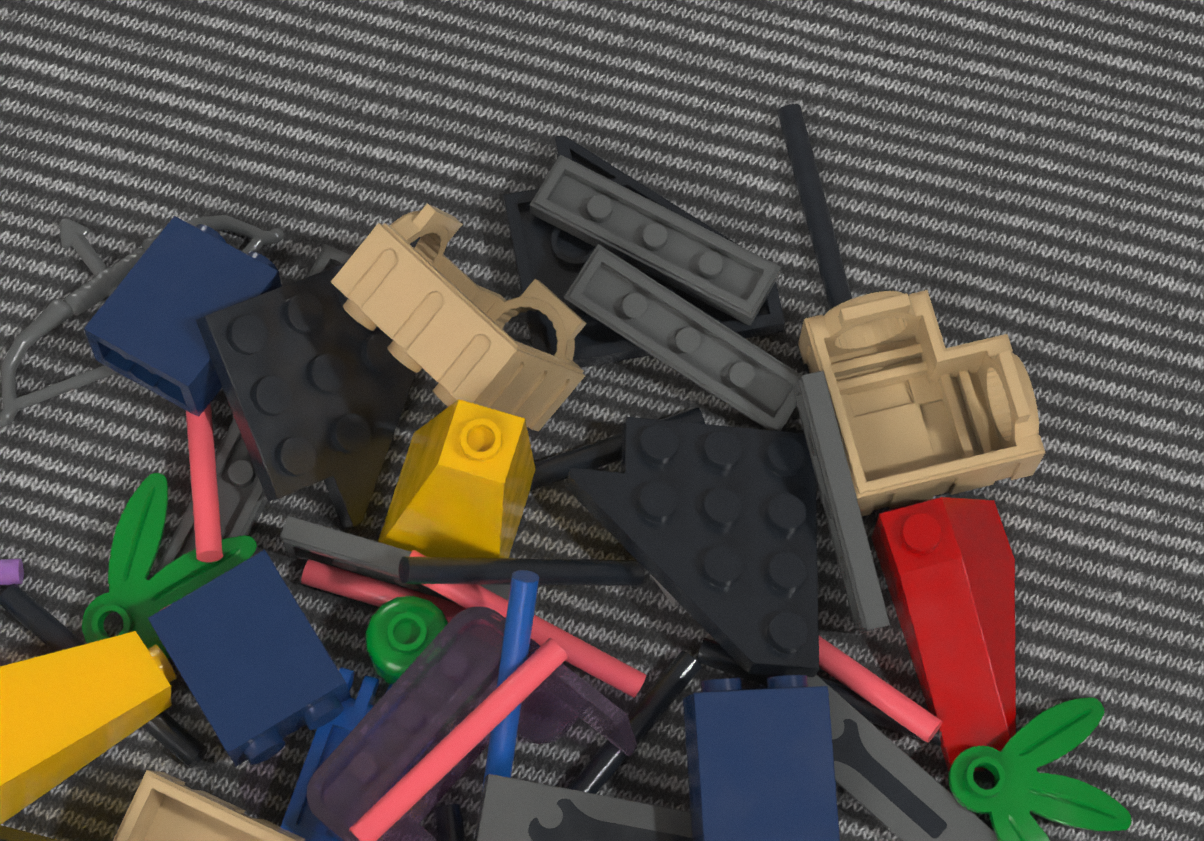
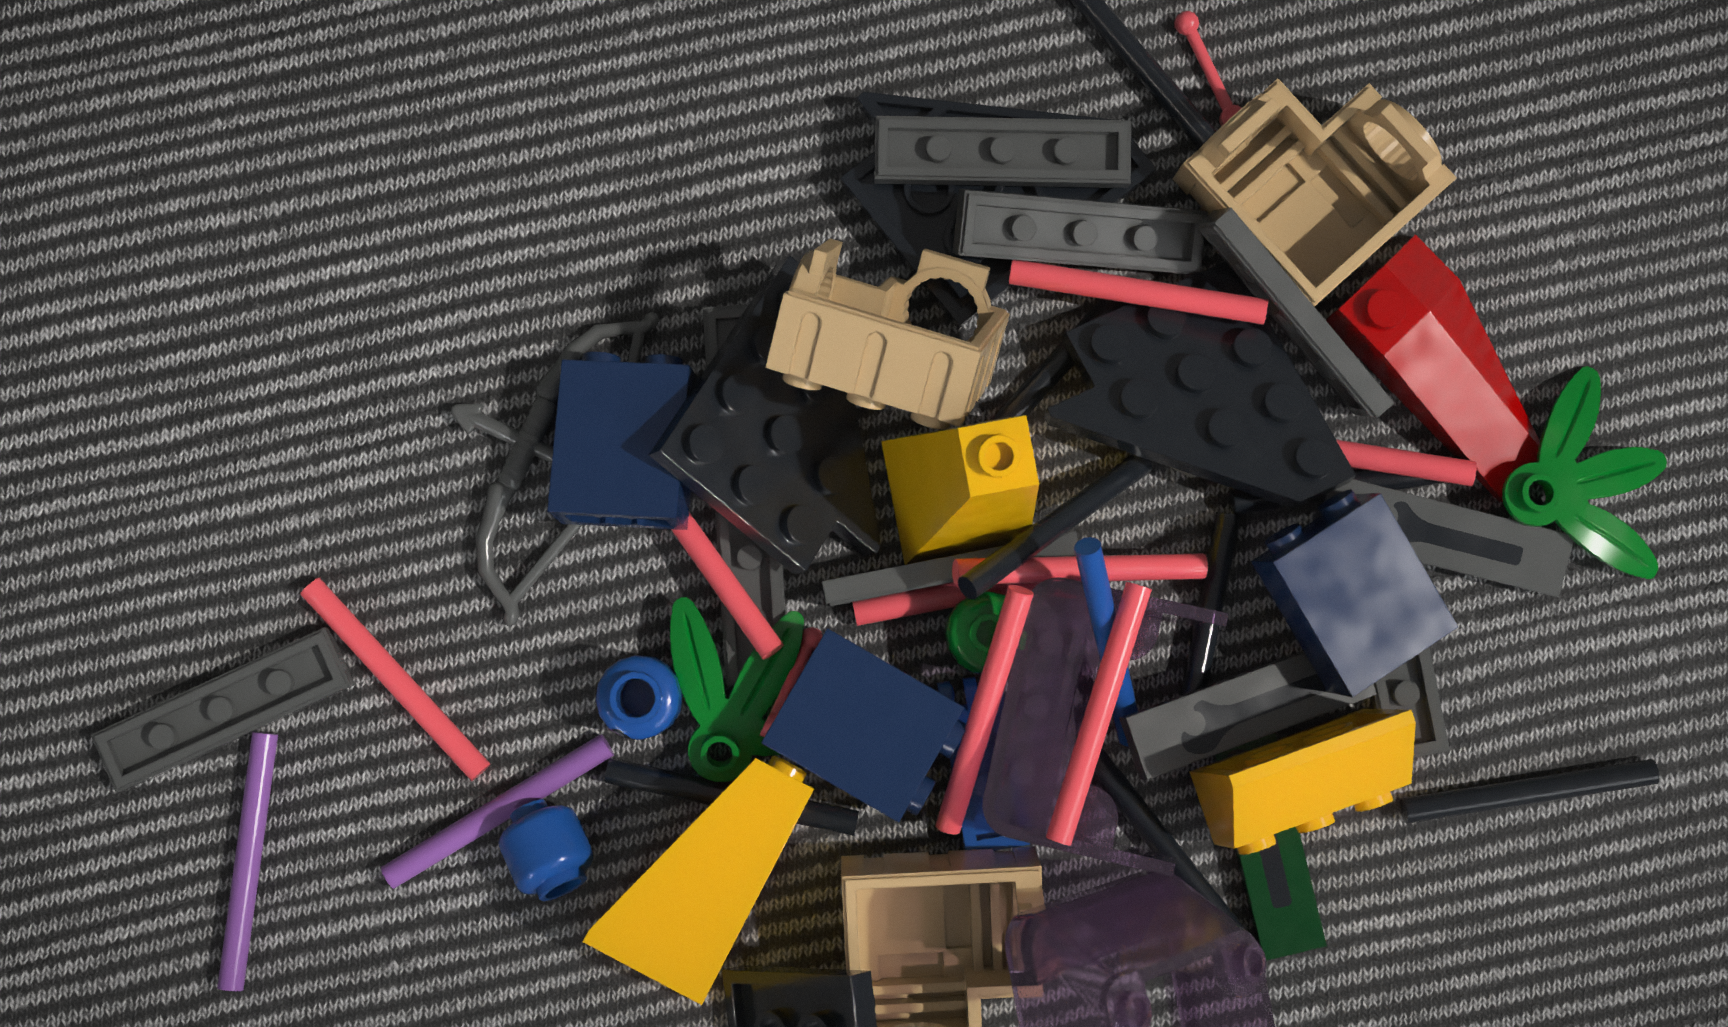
camera: 30 degrees left, 15 degrees up
(69, 536) = (638, 697): none -> blue head
(363, 698) = (984, 709): none -> coral bar
(709, 412) = (1138, 291): none -> coral bar
(881, 224) = (1187, 24): none -> coral hinge

